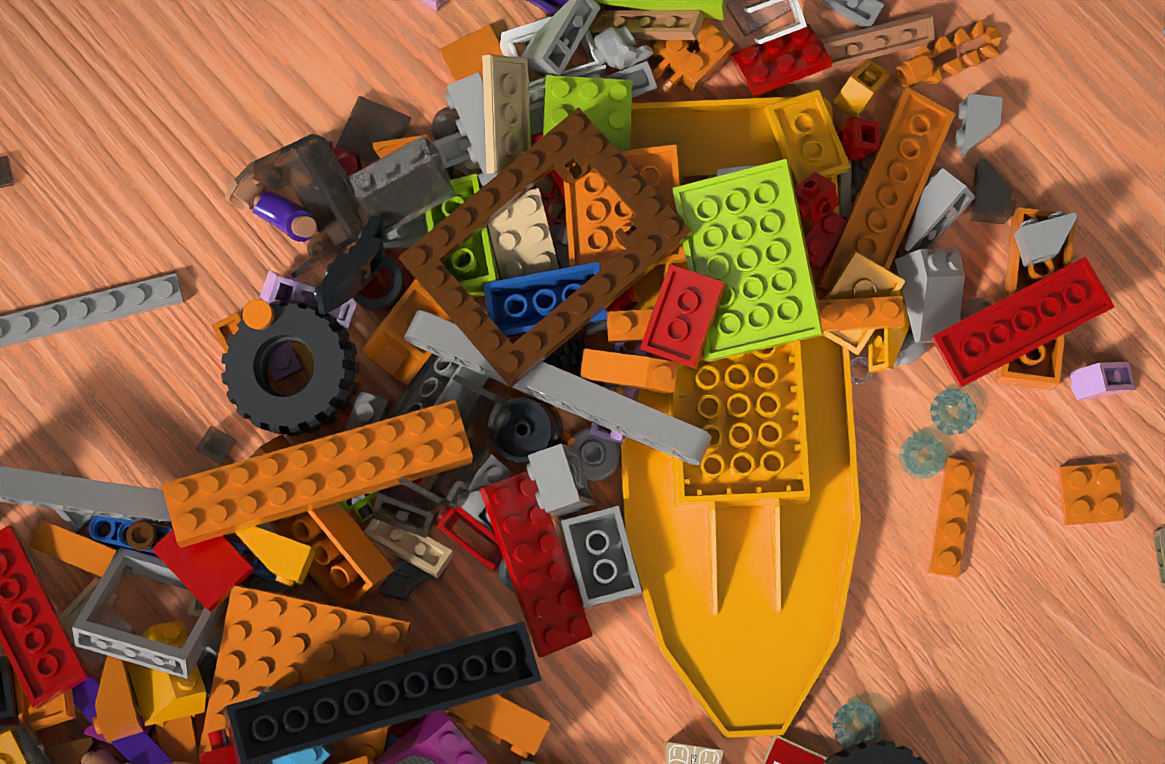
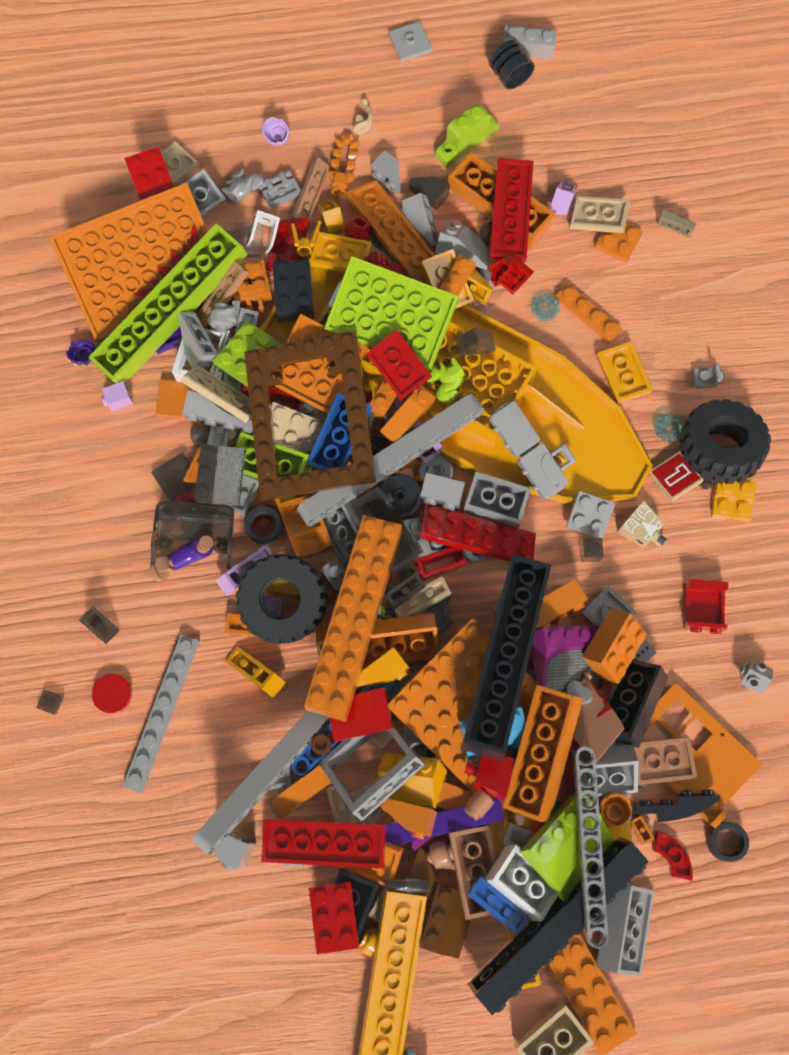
camera: 50 degrees left, 5 degrees down
(52, 239) = (111, 693): none -> red tile
(125, 166) = (99, 624): none -> clear smoke slope
(185, 396) = (255, 672): none -> light orange slope
(216, 445) = (295, 672): clear smoke plate -> none
(258, 314) = (241, 593): orange tile -> none
(353, 270) = (249, 527): black slope -> none
(614, 722) = (591, 550): none -> clear smoke brick
(661, 691) = (590, 514): none -> light grey plate
(681, 574) = (534, 461): none -> light grey piece
(712, 111) = (293, 290): none -> black brick
(716, 393) = (451, 379): none -> lime animal
(788, 84) = (305, 245): none -> light orange plant
(789, 395) = (475, 342): none -> clear smoke slope
(895, 617) = (624, 372): none -> light orange plate
(932, 377) = (510, 273): none -> red slope
(951, 398) = (541, 279): clear light blue gear -> none
(964, 734) = (707, 377): none -> light grey bracket
(1023, 42) = (362, 126): none -> tan piece
(1043, 239) = (475, 172): light grey slope -> none
(1104, 191) = (465, 134): none -> lime brick
(1108, 445) = (600, 214): none -> tan tile

